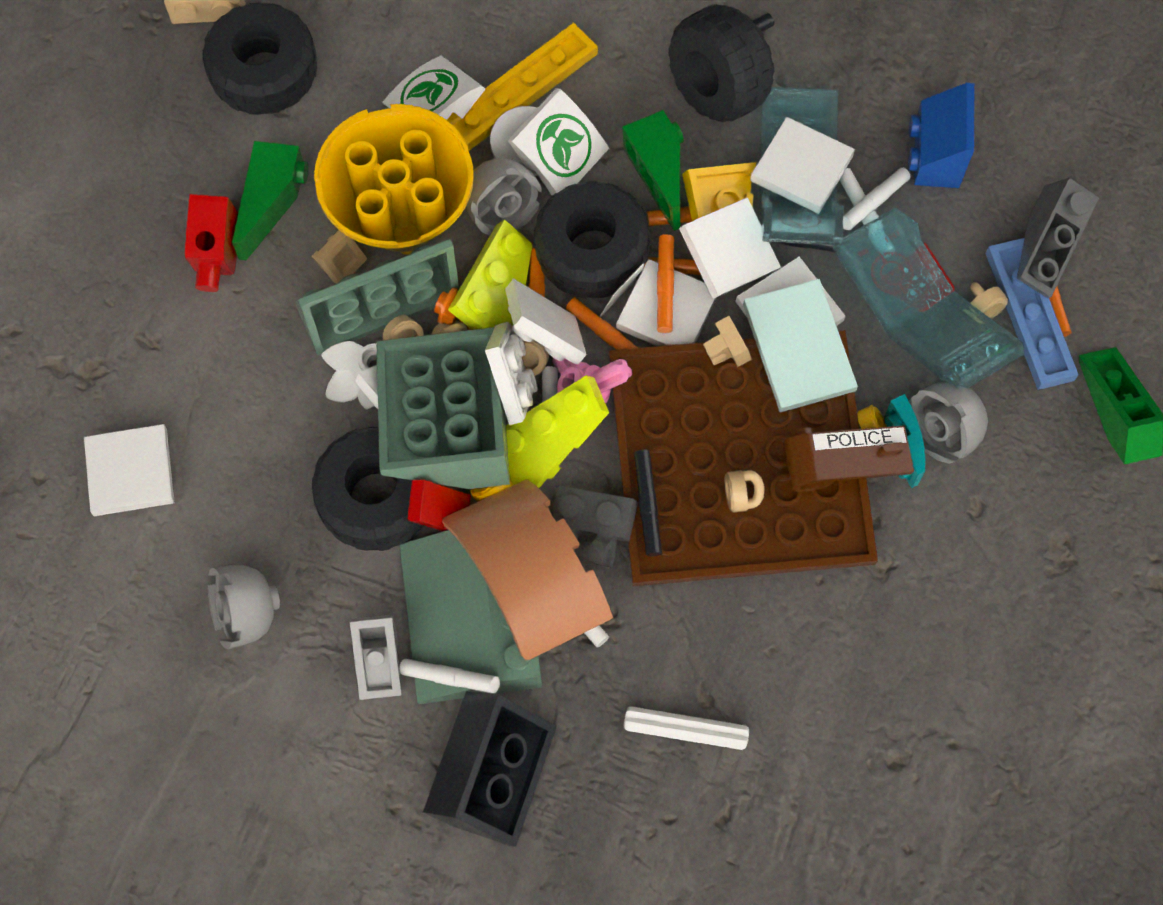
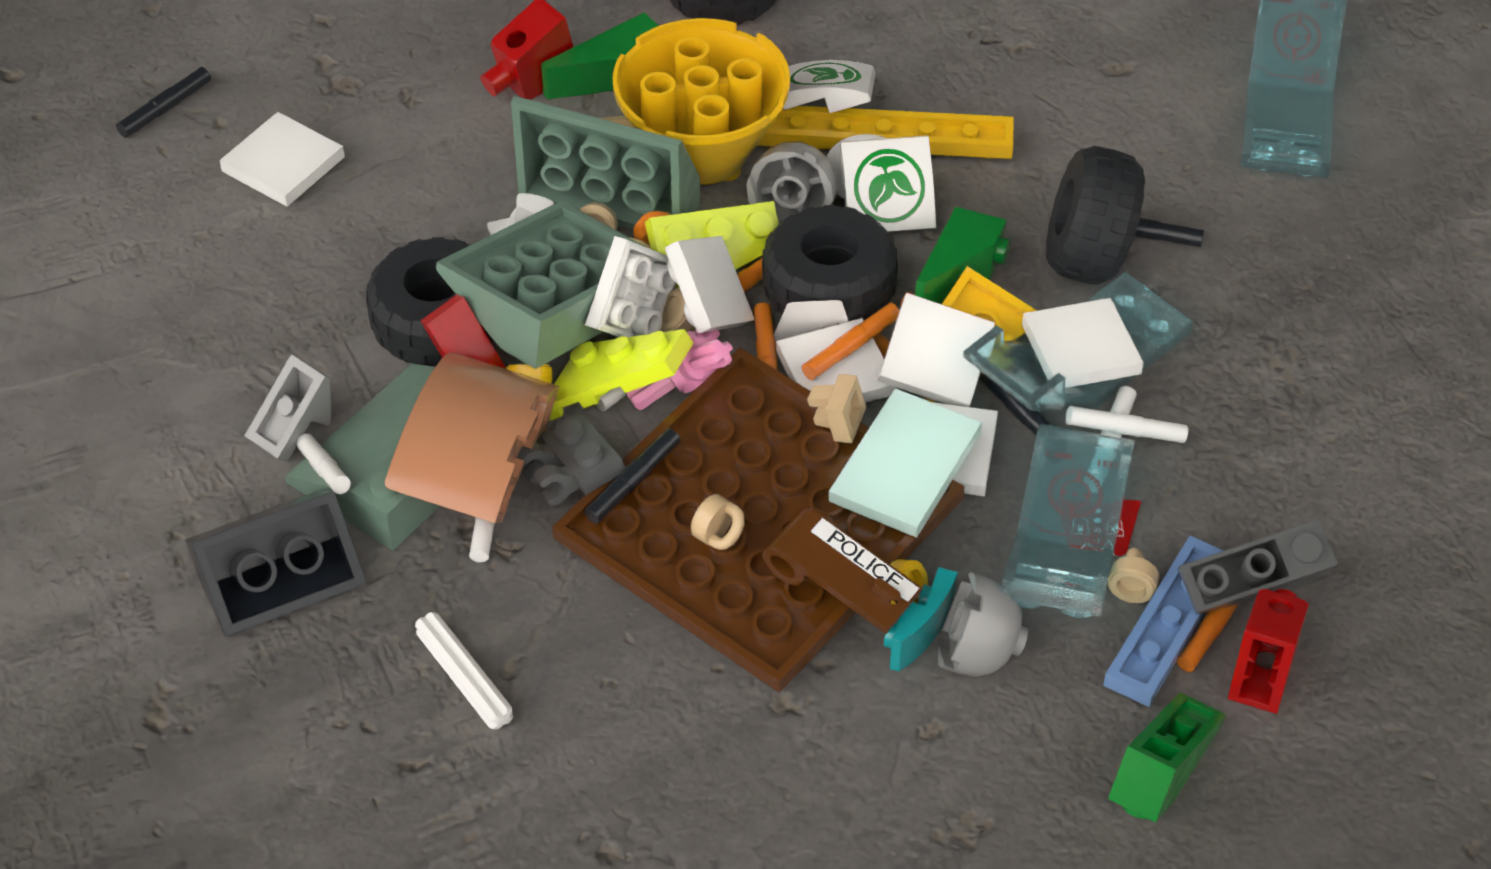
camera: 45 degrees right, 20 degrees down
(241, 604) = (241, 297): light grey cylinder -> none
(943, 137) = (1247, 425): blue slope -> none
(1108, 283) = (1271, 628): none -> red torso

